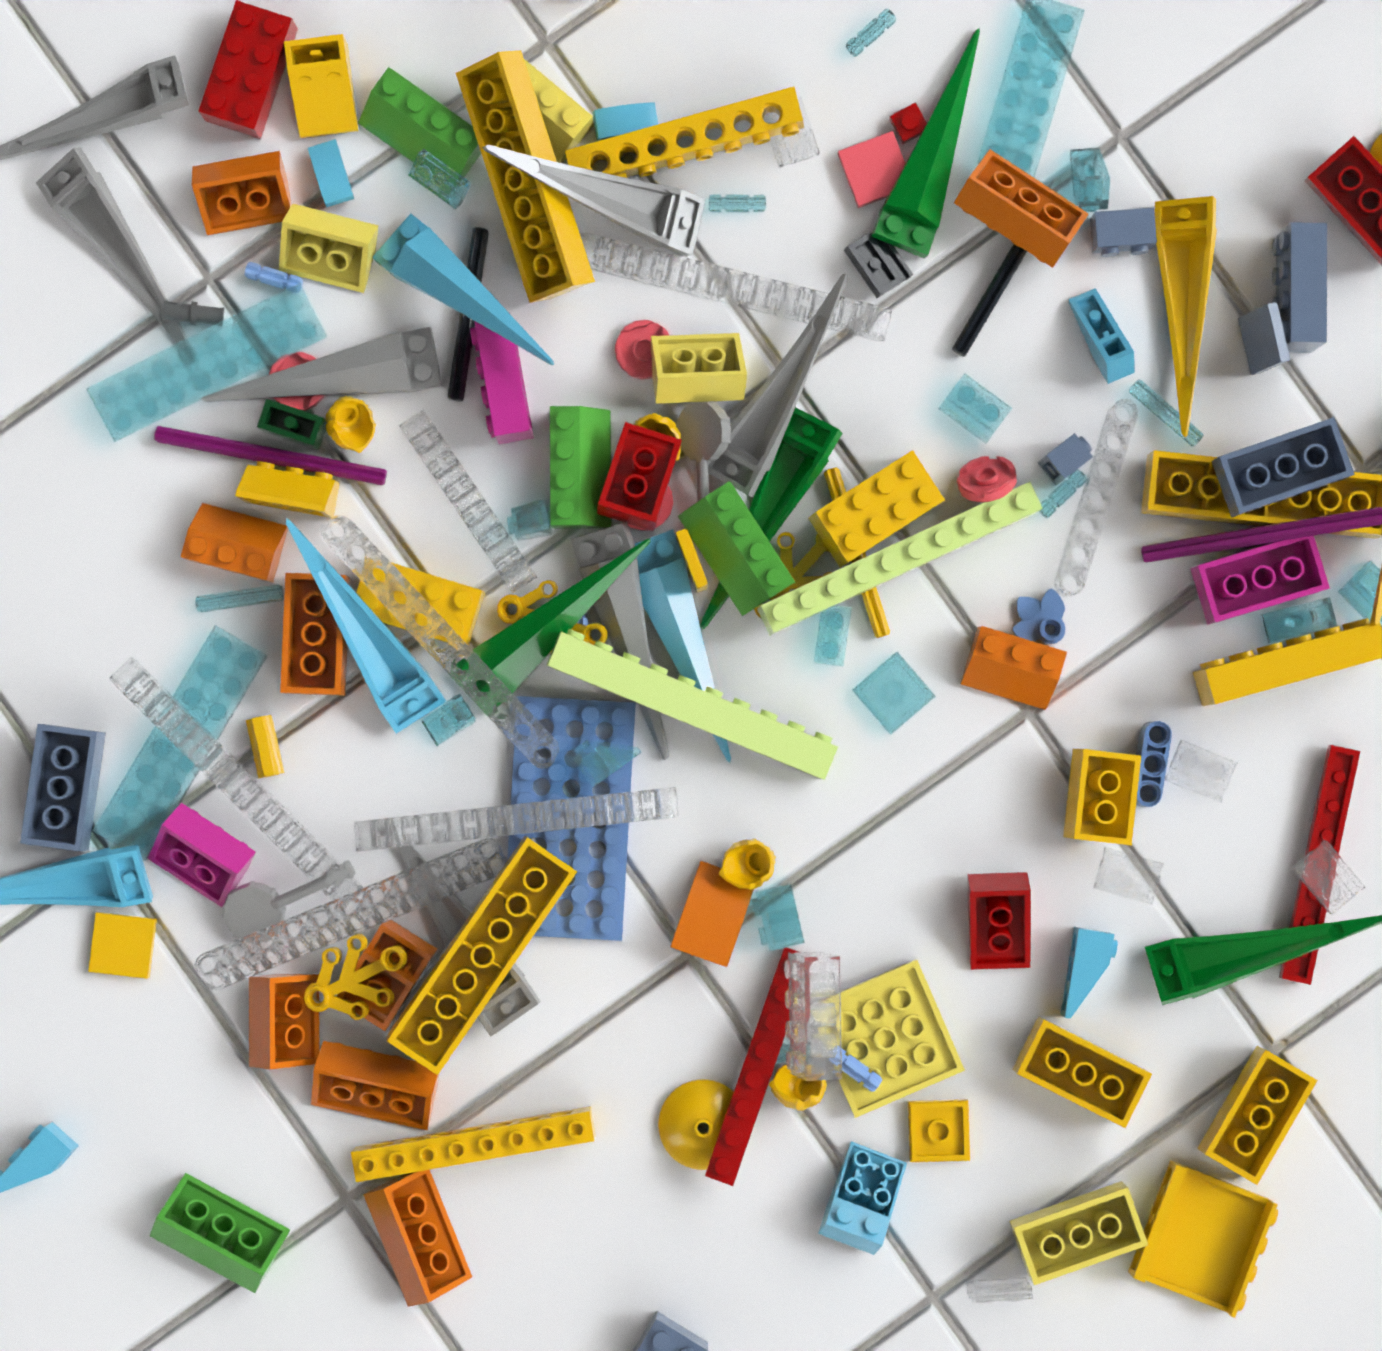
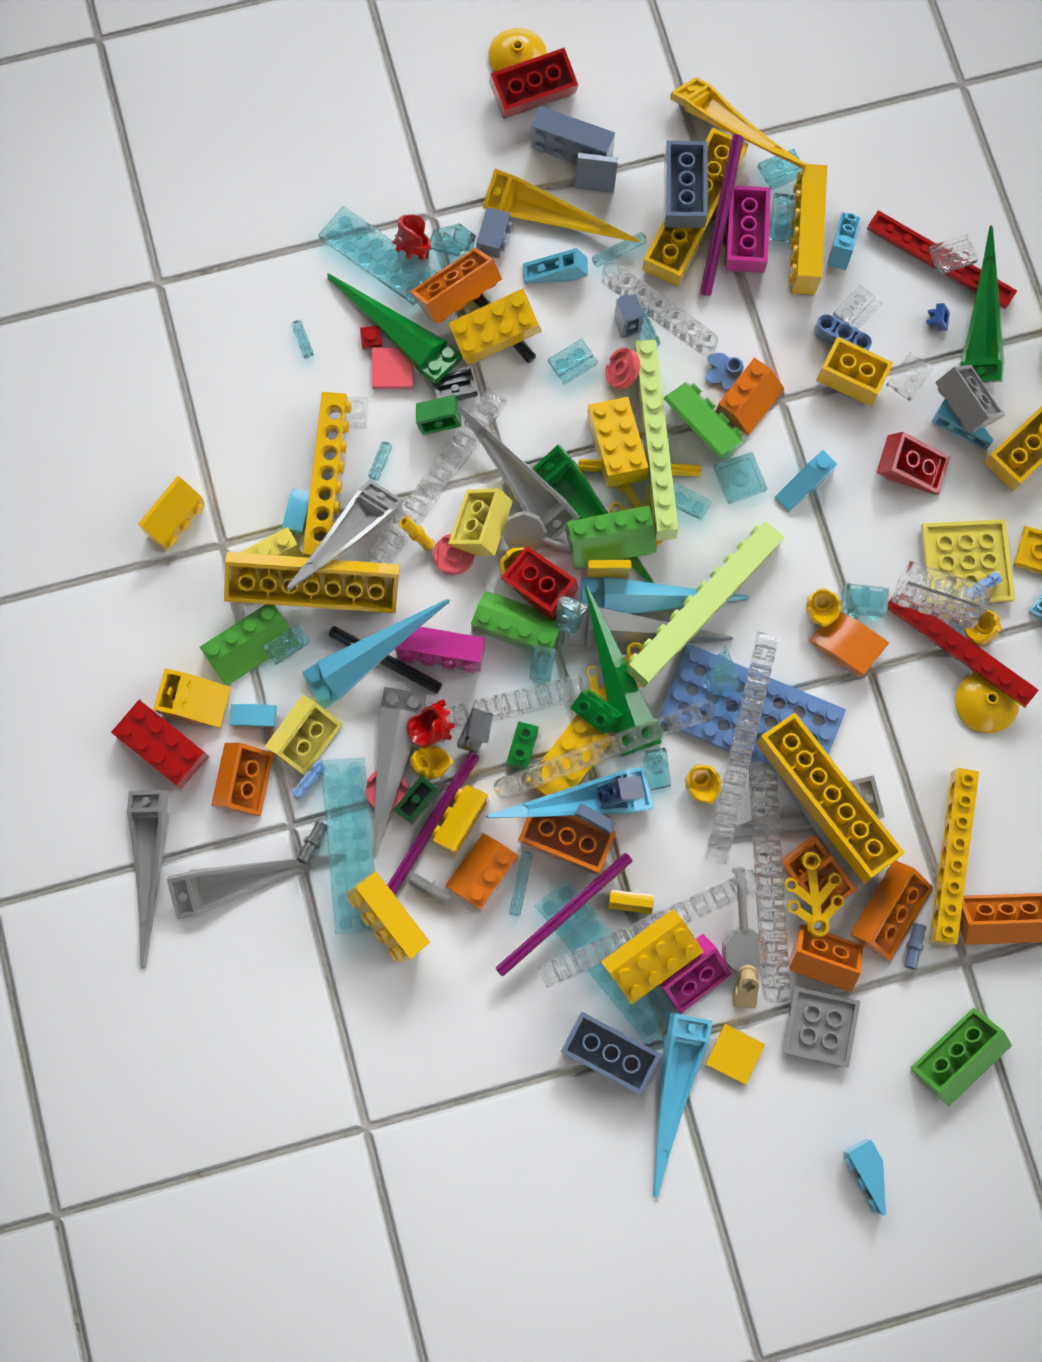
camera: 70 degrees left, 10 degrees down
(124, 446) = (387, 918): none -> yellow brick
(189, 484) = (429, 888): none -> light grey axle
(194, 795) = (652, 956): none -> yellow brick
(194, 1042) = (821, 1026): none -> light grey plate
(207, 930) = (746, 988): none -> tan piece
(215, 666) = (564, 914): none -> magenta axle
(339, 1130) = (915, 946): none -> sand blue pin
(343, 661) = (595, 819): none -> sand blue beam
(389, 681) = (620, 792): none -> dark blue brick
(394, 405) = (430, 725): none -> red hair
(411, 466) = (475, 730): none -> slope
(415, 534) = (522, 746): none -> green brick
(450, 786) = (703, 783): none -> yellow hair
(490, 612) = (596, 711): none -> green brick
(607, 531) = (569, 614): none -> clear light blue slope
(648, 289) = (416, 533): none -> yellow pin
(825, 254) = (438, 415): none -> green brick
(919, 783) = (806, 480): none -> medium azure slope
(950, 615) = (705, 420): none -> bright green slope
(979, 284) = (495, 327): none -> yellow brick
(1069, 122) = (411, 237): none -> red hair
(1115, 966) = (969, 398): none -> light grey slope
(1230, 891) = (941, 317): none -> blue tile
(1296, 719) = (844, 241): none -> medium azure slope

